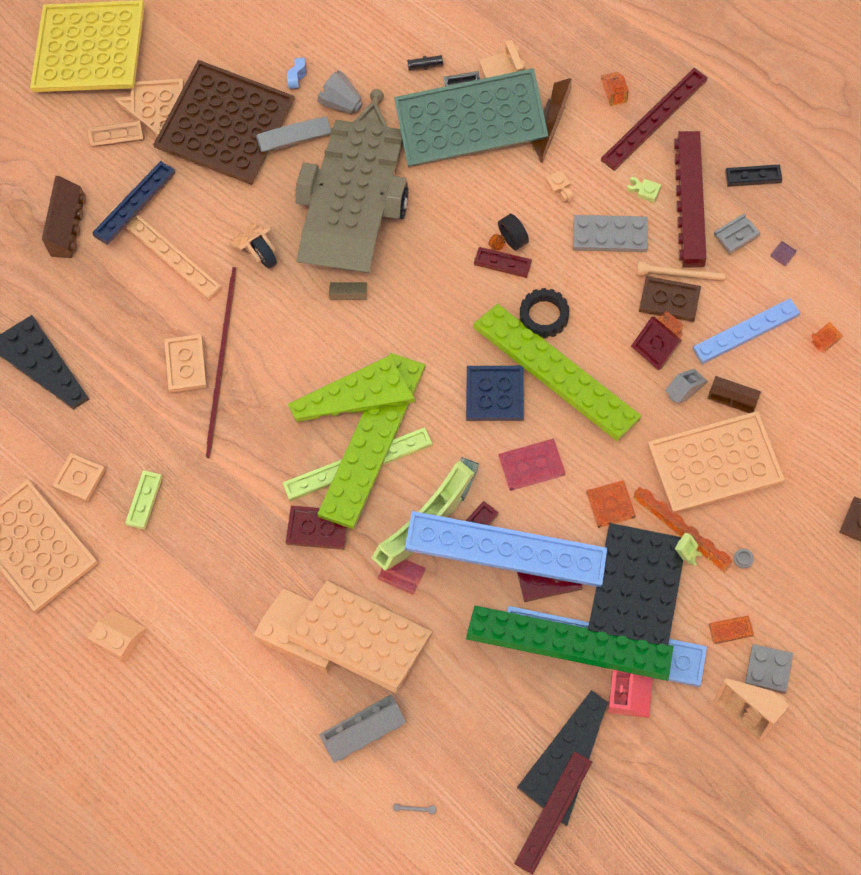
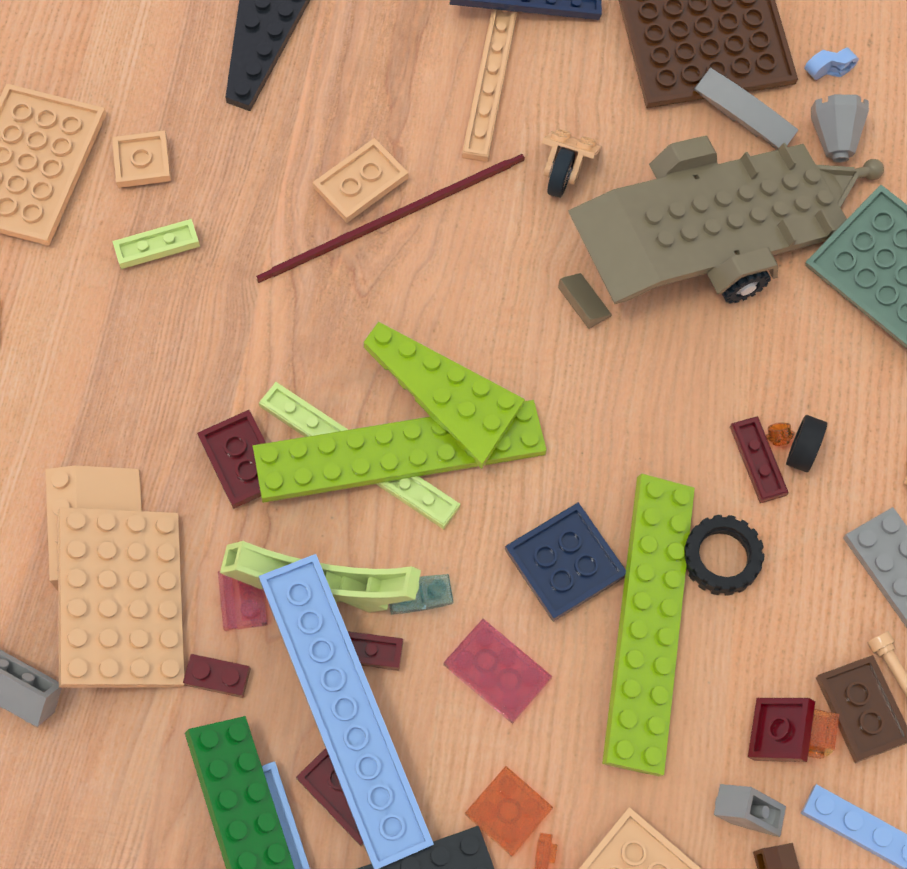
camera: 50 degrees right, 0 degrees up
(438, 612) = (216, 675): none -> dark red plate

